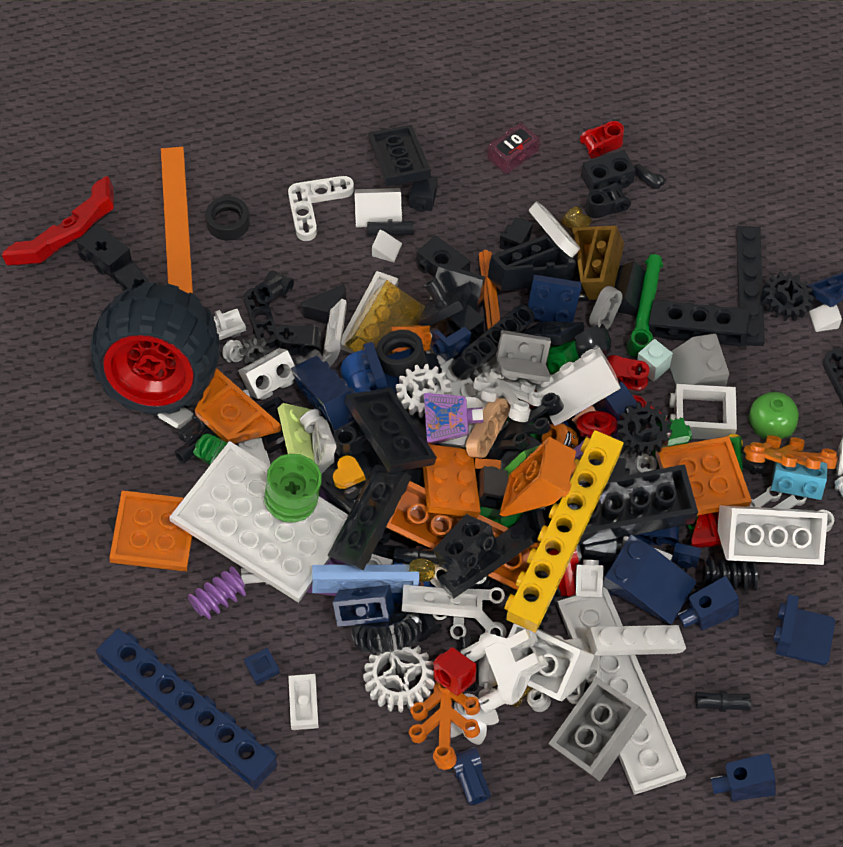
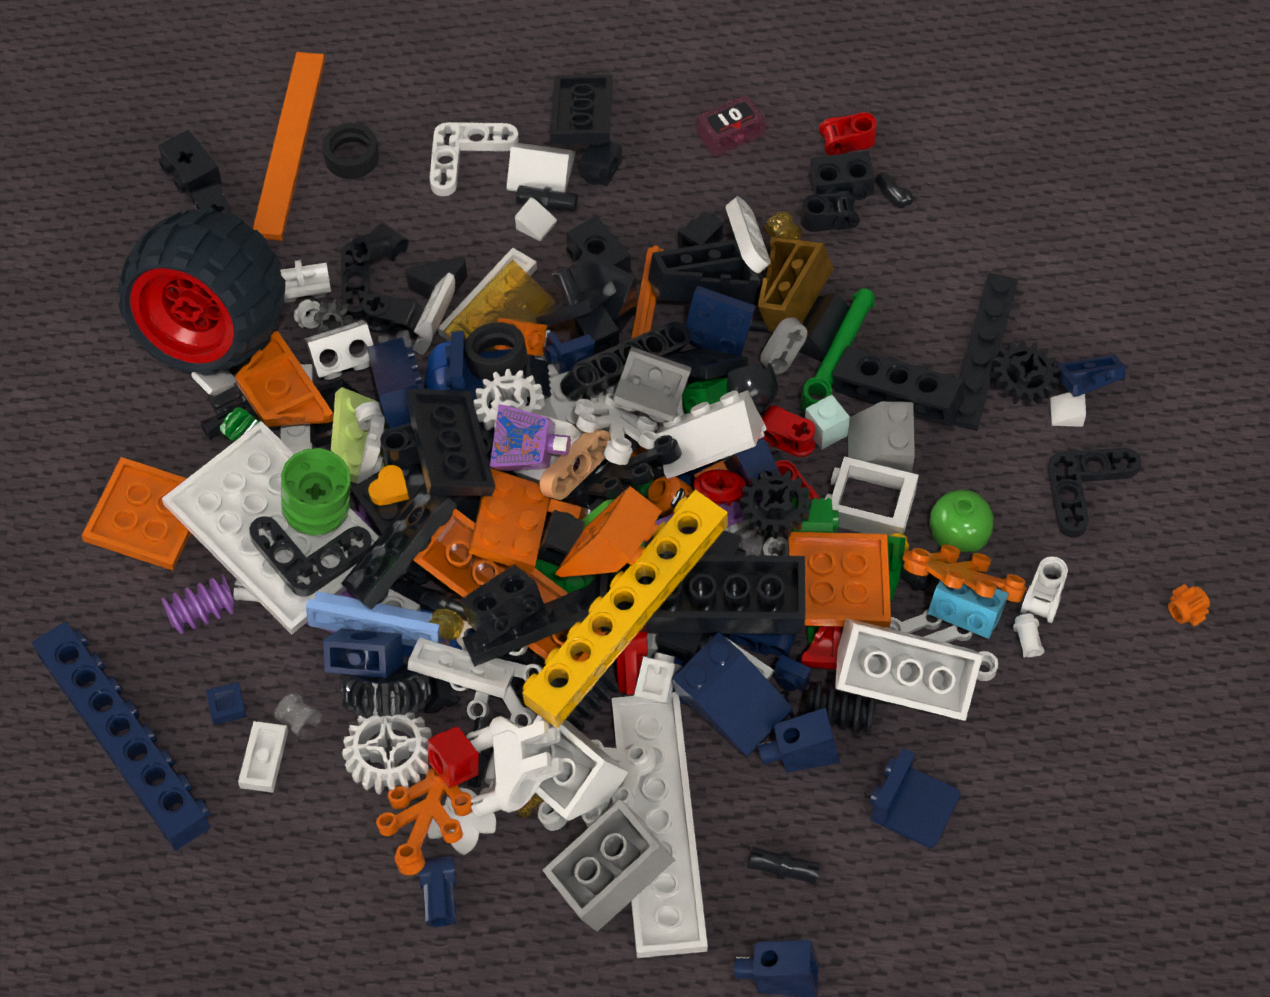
camera: 15 degrees right, 0 degrees up
(76, 225) = (137, 138): red helmet -> none
(295, 546) = (300, 563): none -> black beam
(320, 663) = (296, 713): none -> clear wheel
(635, 640) = (692, 765): white plate -> none

